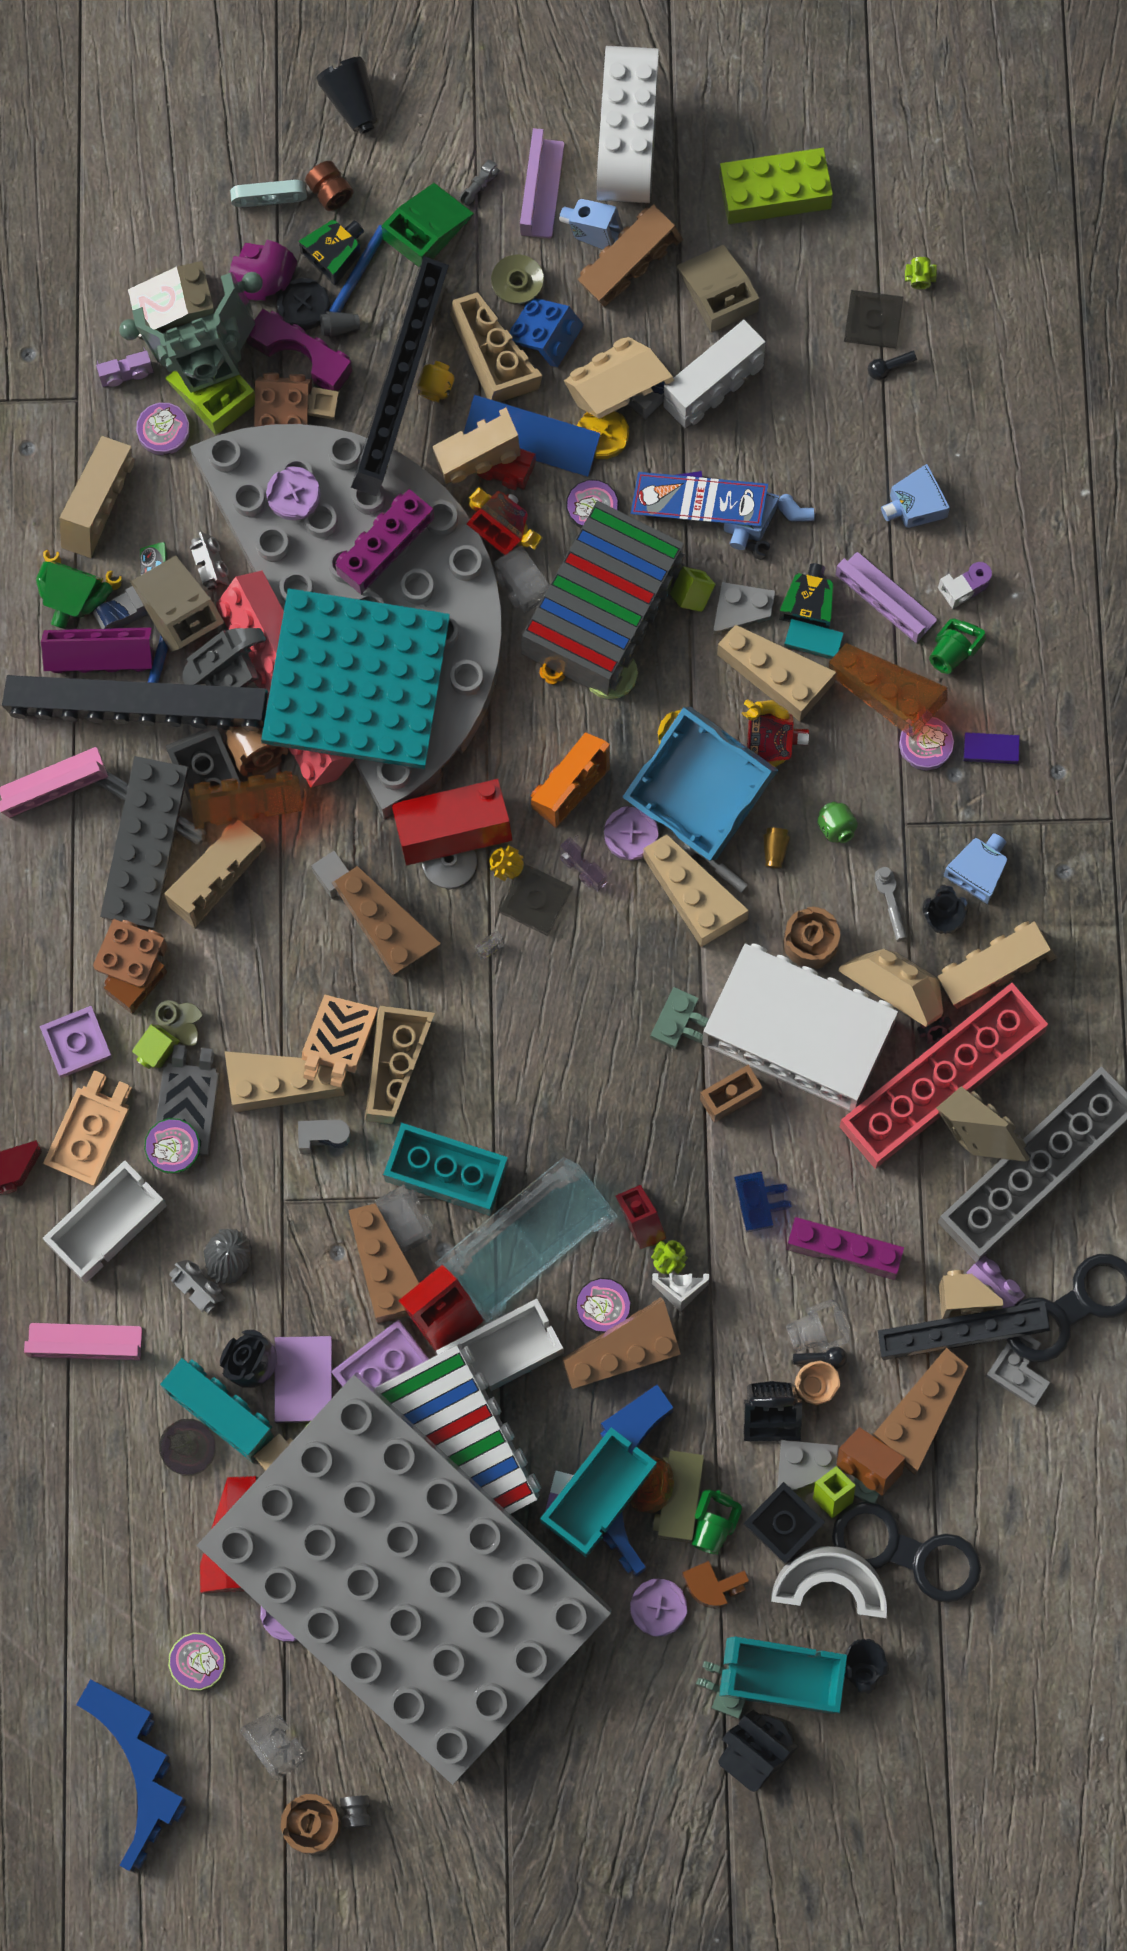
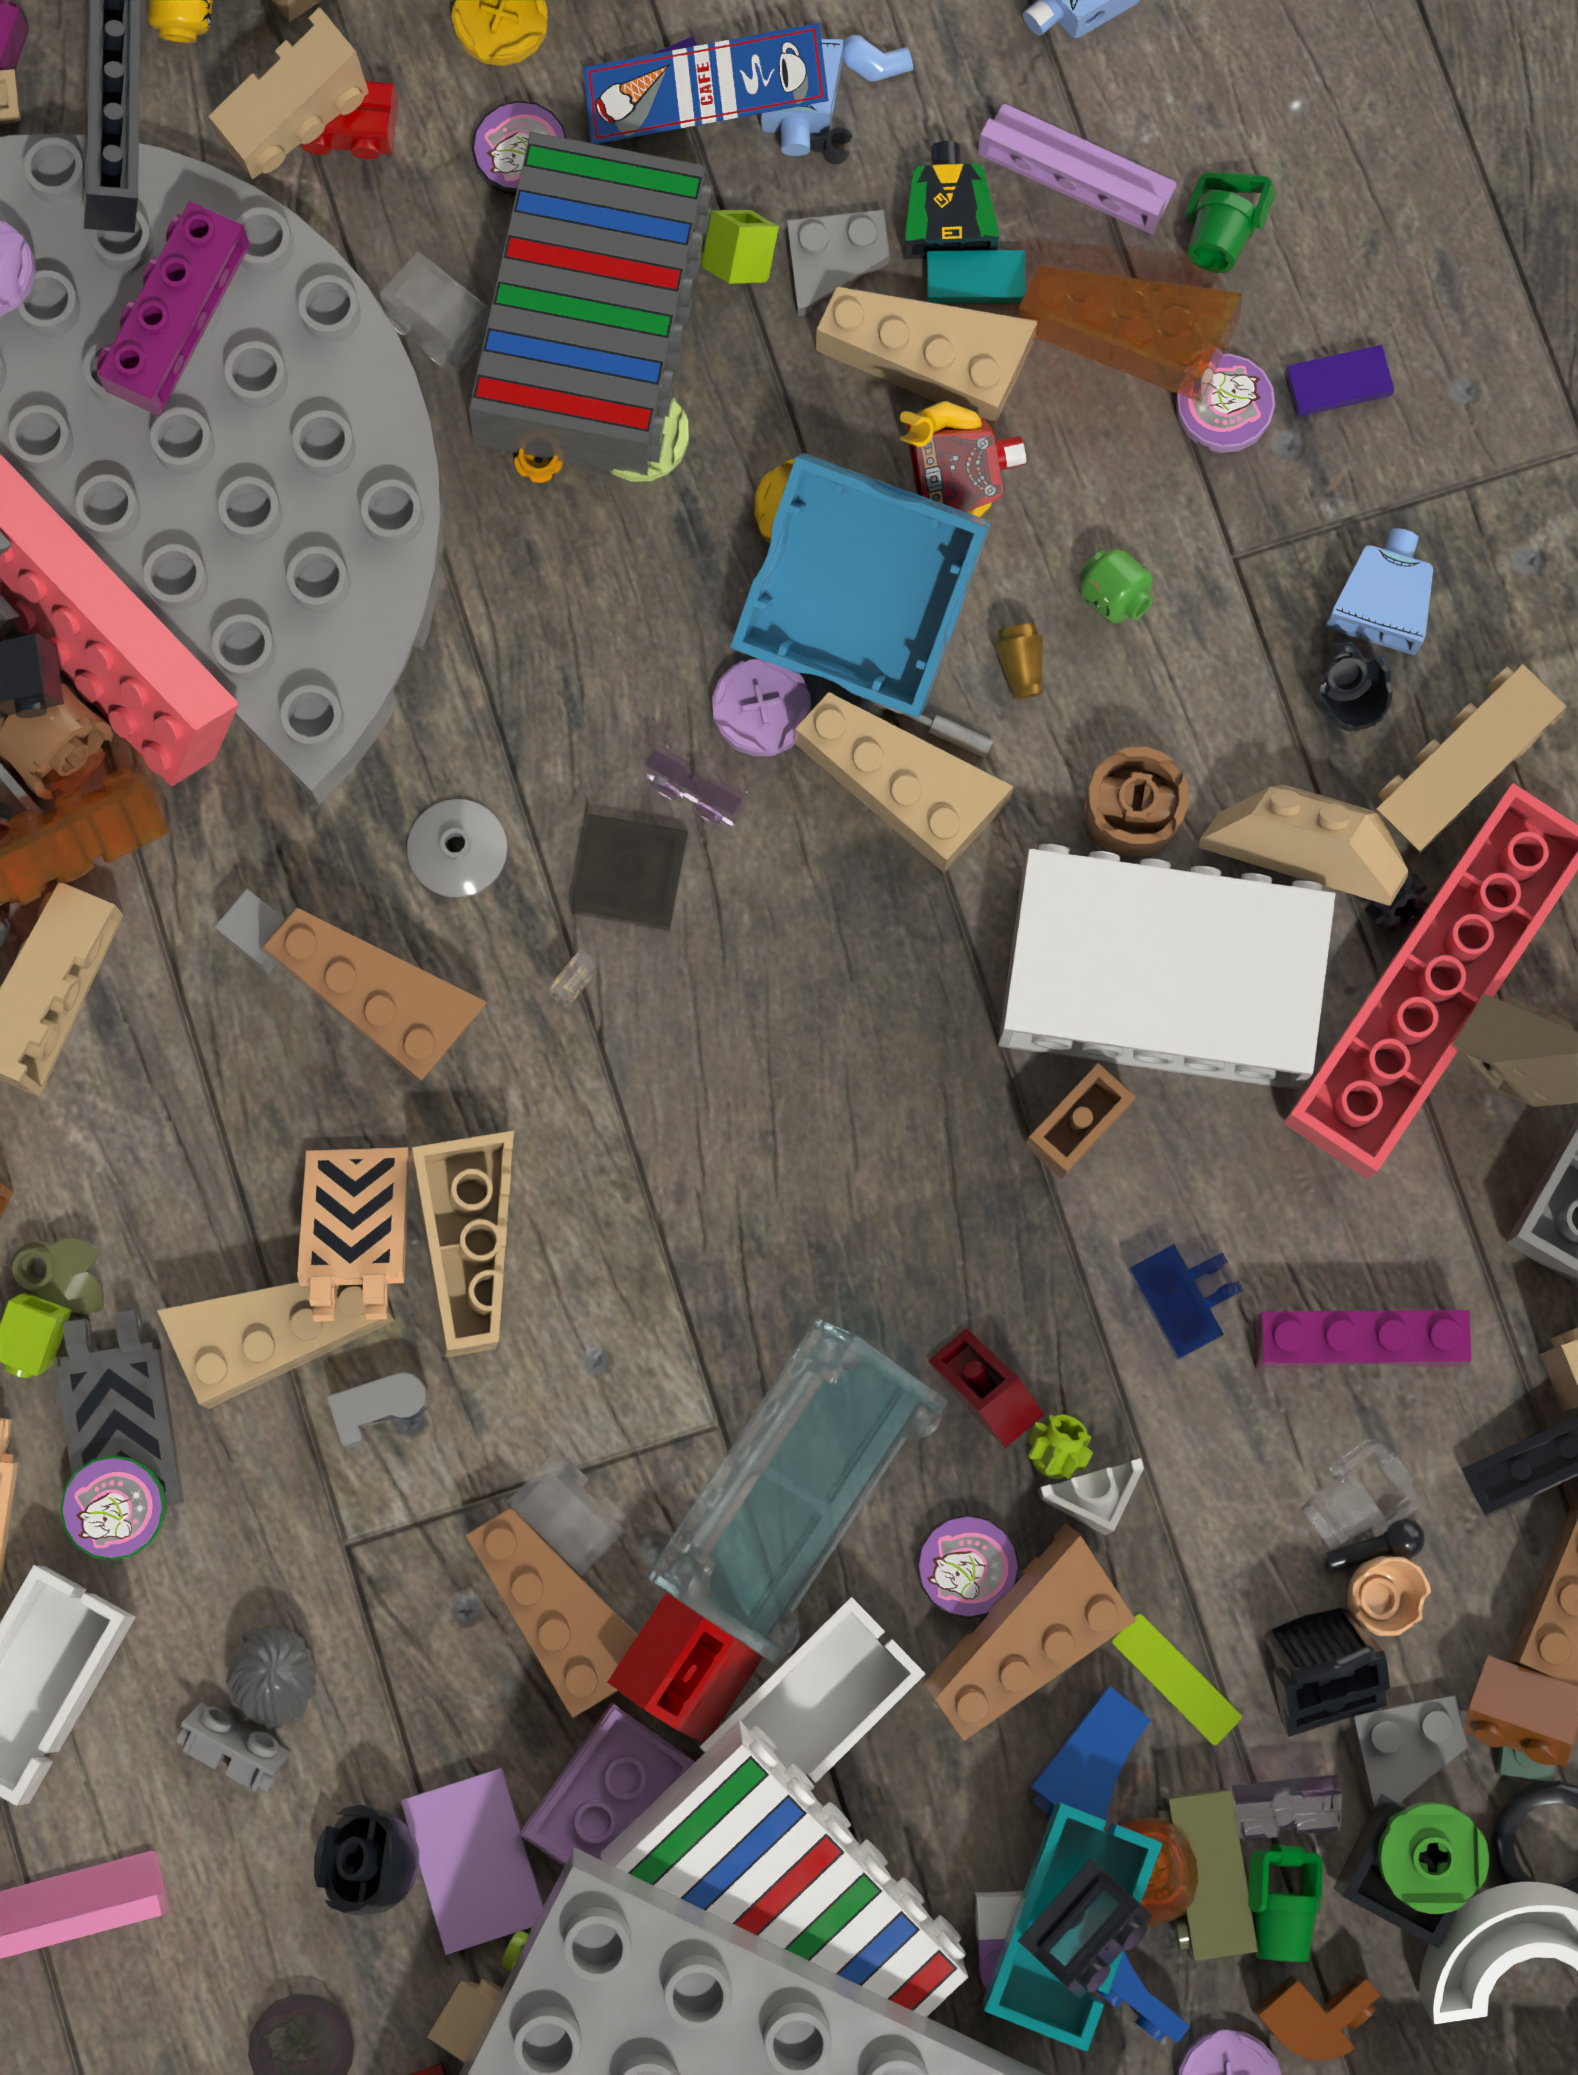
camera: 20 degrees left, 5 degrees up
(216, 1409) = (336, 1971): teal brick -> none
(355, 678) = (193, 570): teal plate -> none
(446, 1169) = (616, 1405): teal brick -> none
(452, 822) = (442, 777): red brick -> none
(501, 521) = (370, 218): torso -> none
(506, 863) = (559, 822): yellow gear -> none
(549, 439) = (417, 52): blue sticker -> none
(572, 779) = (631, 640): orange wedge -> none
(603, 1490) = (1086, 1929): none -> black window
(675, 1017) = (938, 1013): sand green hinge -> none
(695, 1396) = (1177, 1679): none -> lime sticker
(727, 1472) = (1299, 1803): none -> piece
(809, 1505) = (1455, 1879): none -> bright green plate
(834, 1492) = (1480, 1785): lime brick -> none
(886, 885) = (1232, 673): light grey piece -> none
(966, 585) = (1211, 110): leg -> none

